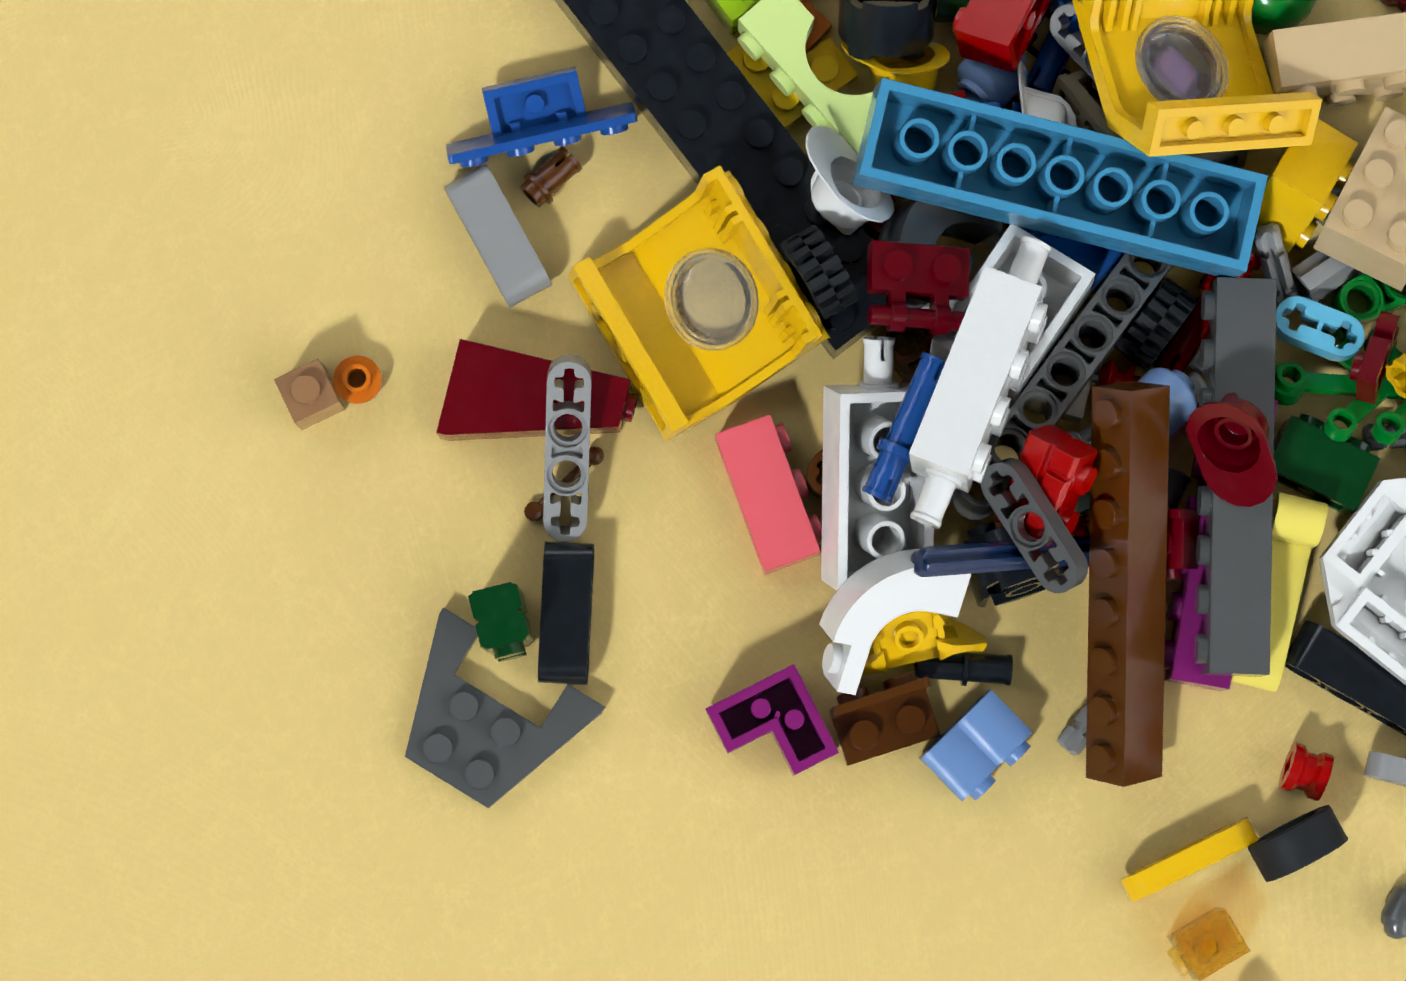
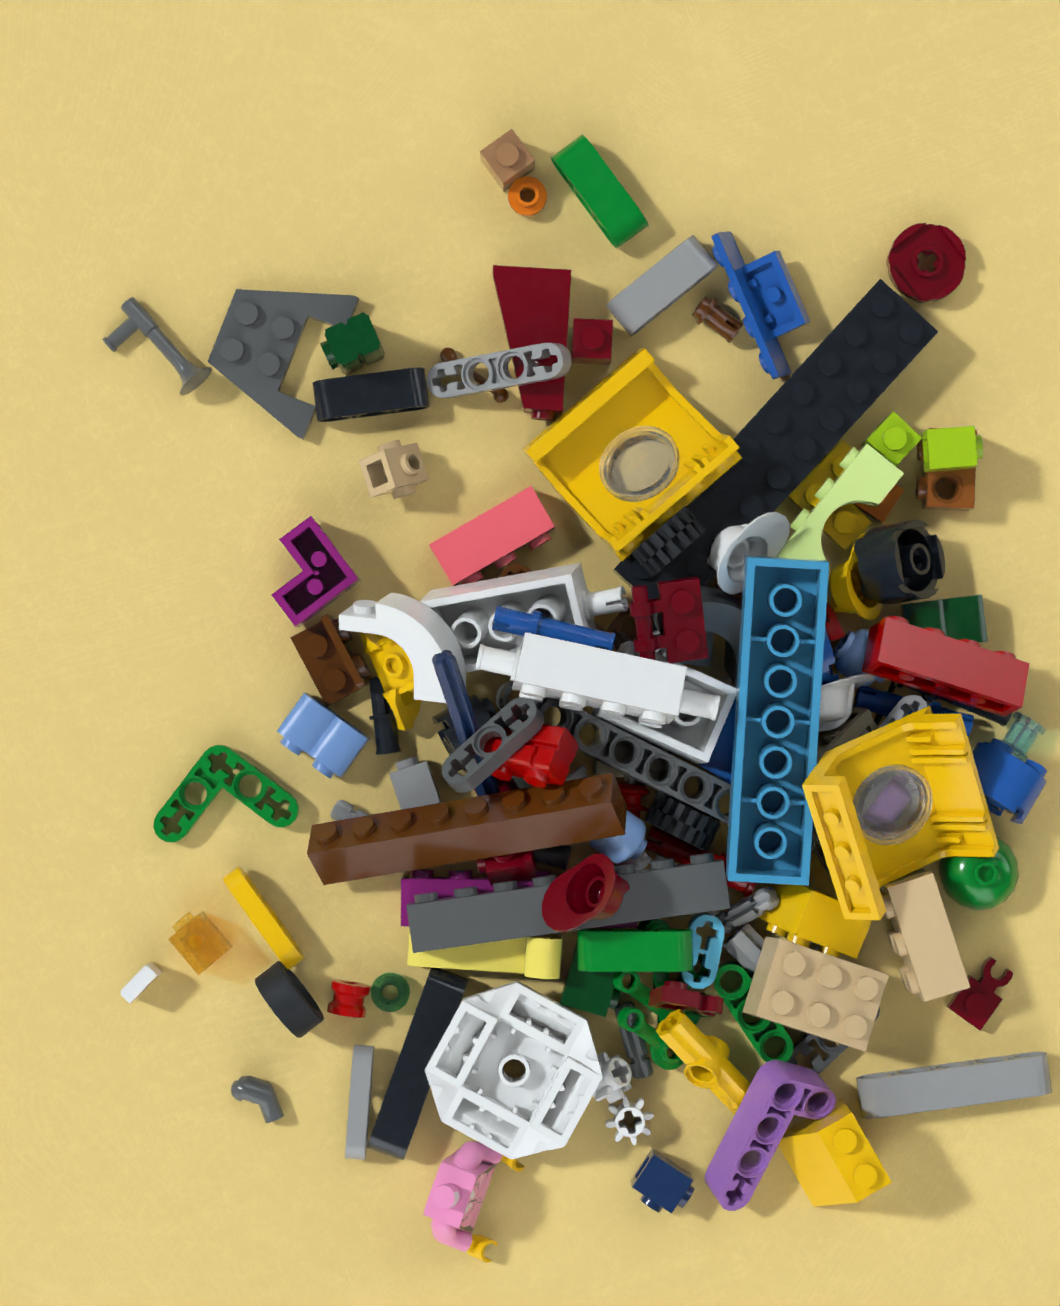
camera: 80 degrees right, 5 degrees up
(368, 290) = (599, 191): none -> green beam
(419, 883) = (139, 319): none -> dark grey piece
(550, 330) = (592, 341): none -> dark red brick
(665, 599) = (401, 467): none -> tan brick
(1012, 893) = (213, 783): none -> green beam
(1056, 643) = (414, 783): none -> light grey brick
(1307, 404) = (635, 950): none -> green beam
(1319, 714) = (385, 1003): none -> clear green plate

